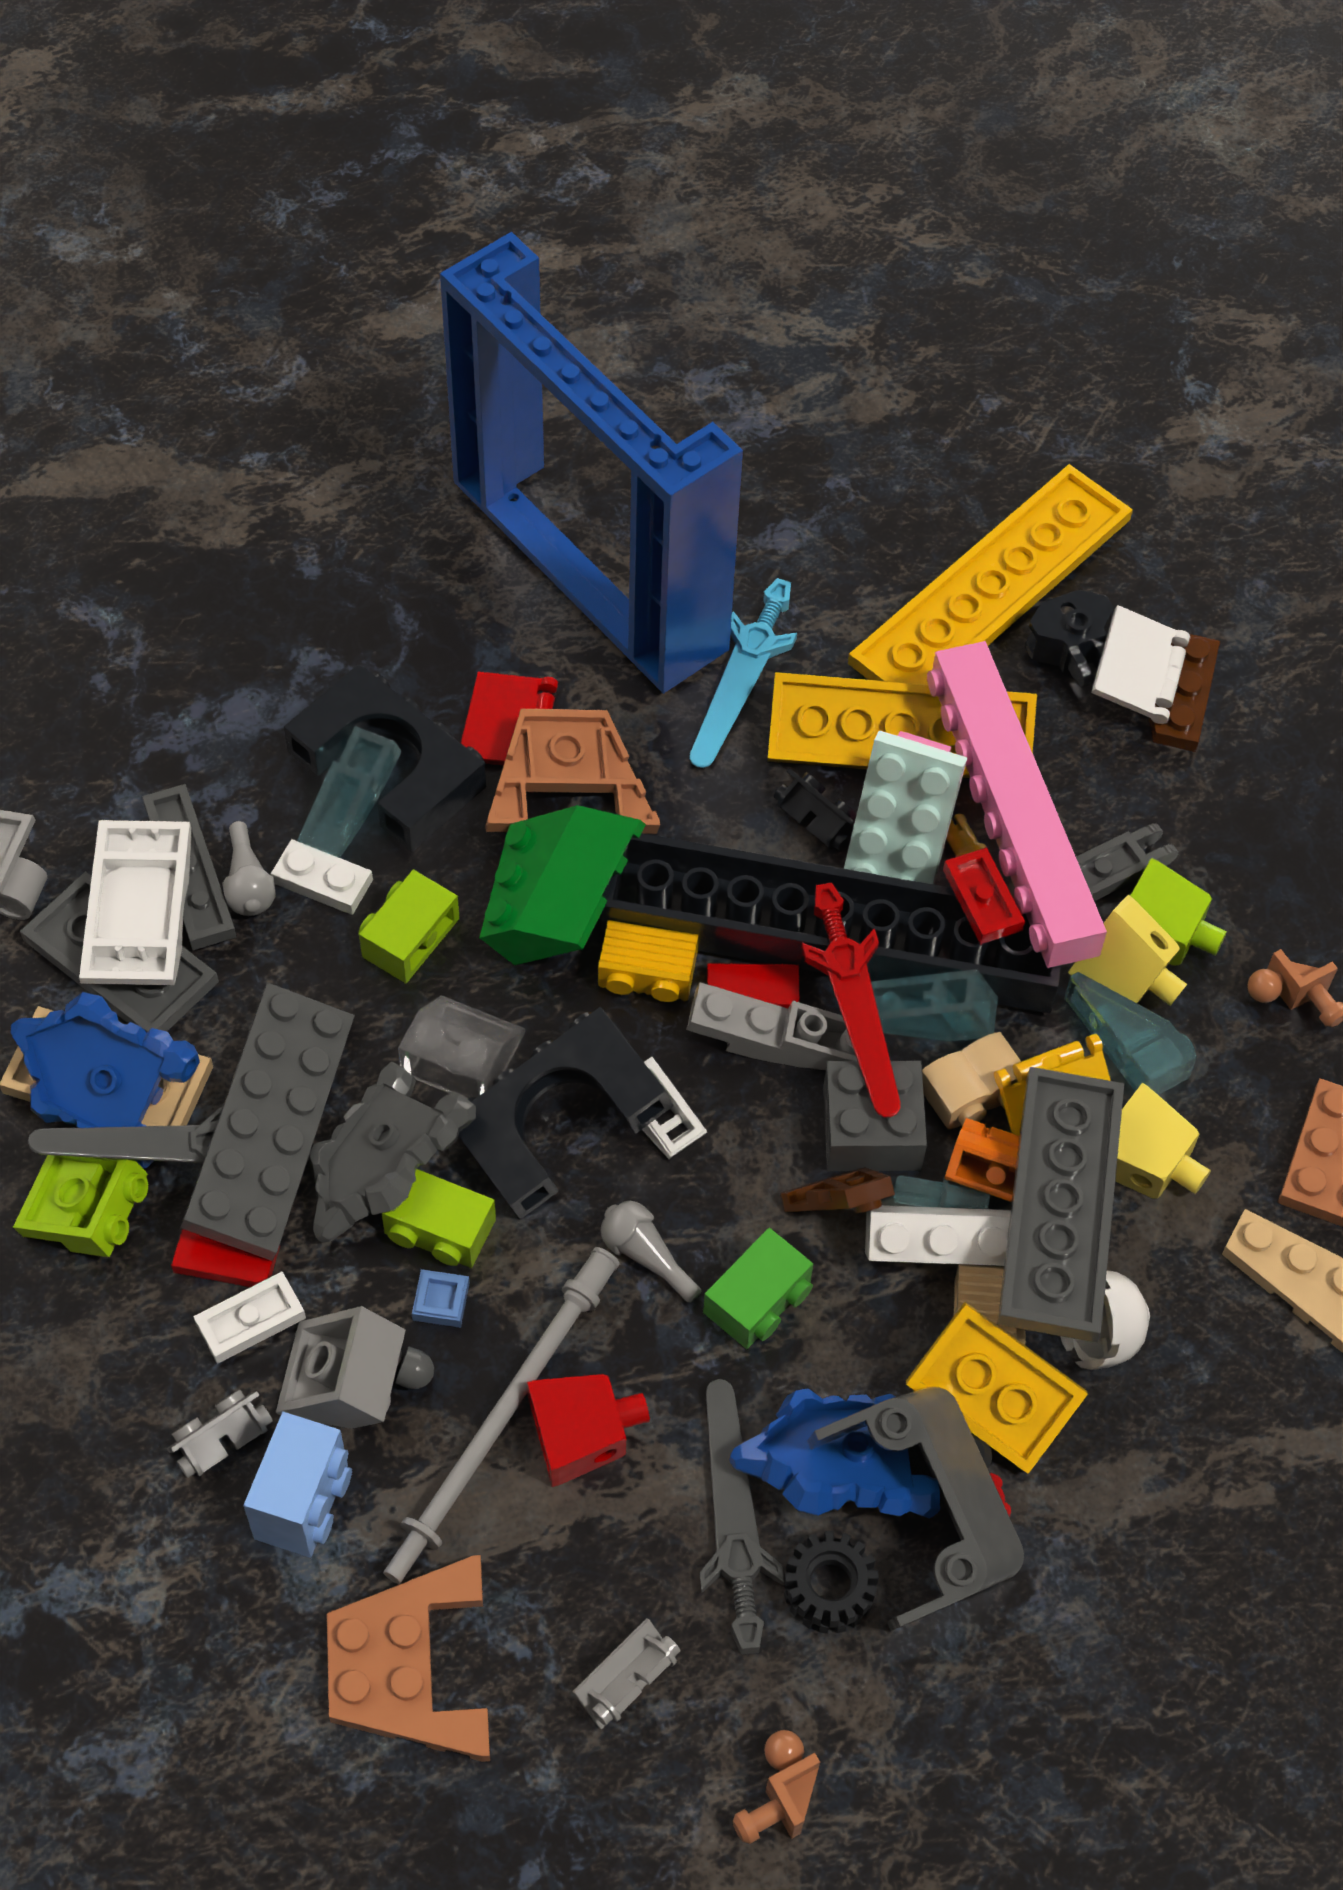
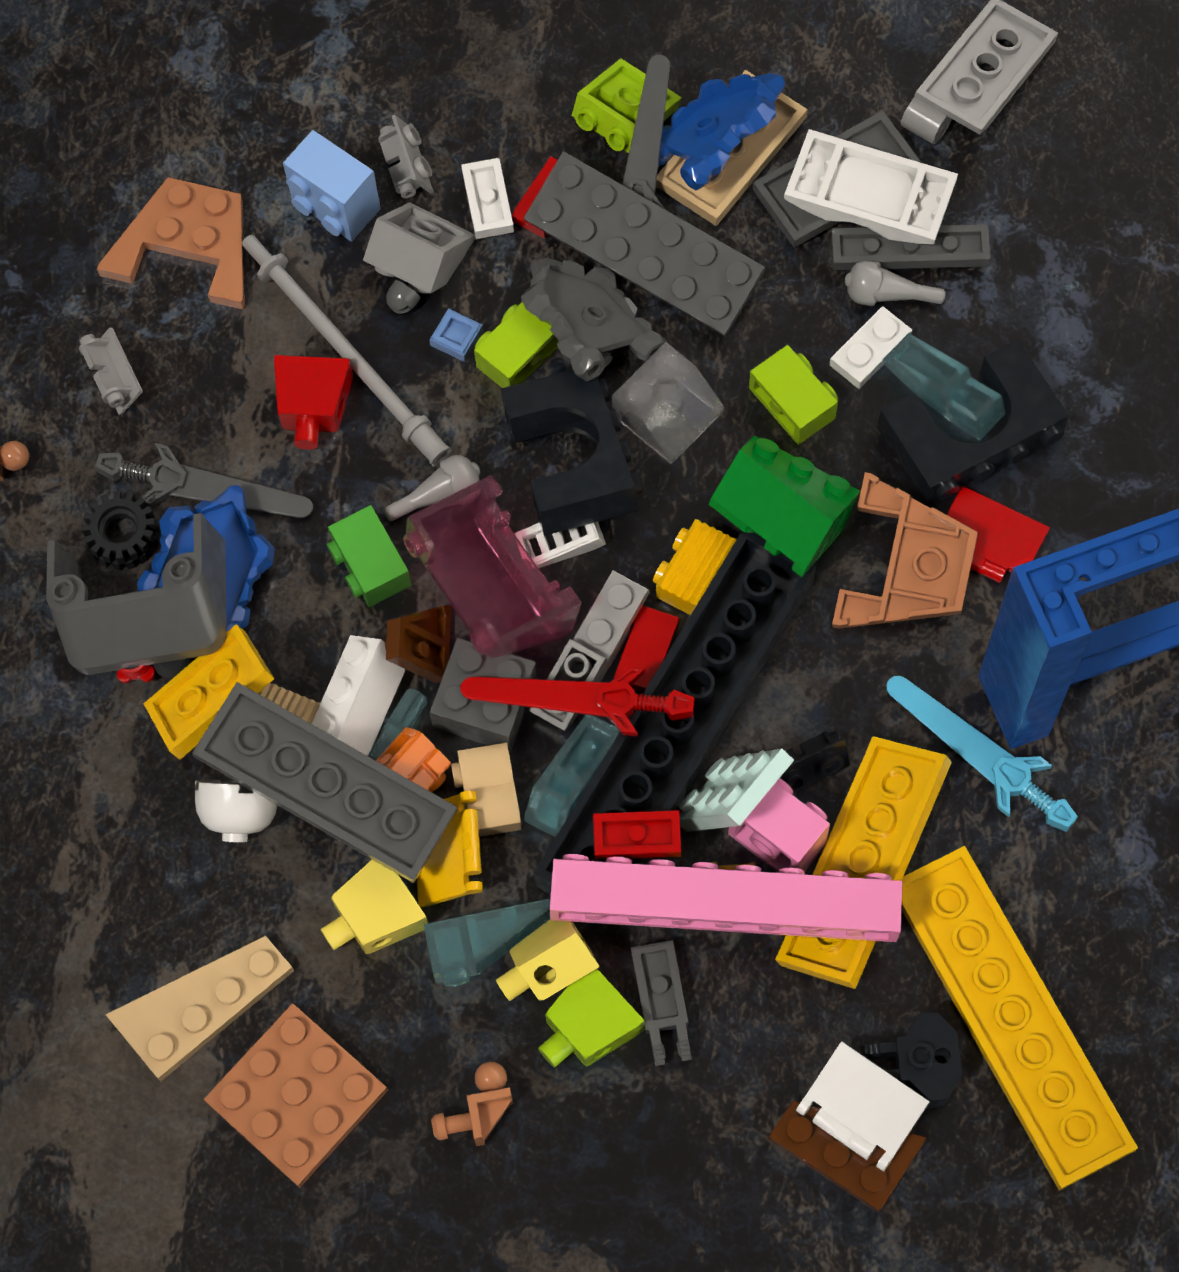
camera: 115 degrees right, 10 degrees up
(751, 1129) = (489, 572): none -> clear pink windscreen

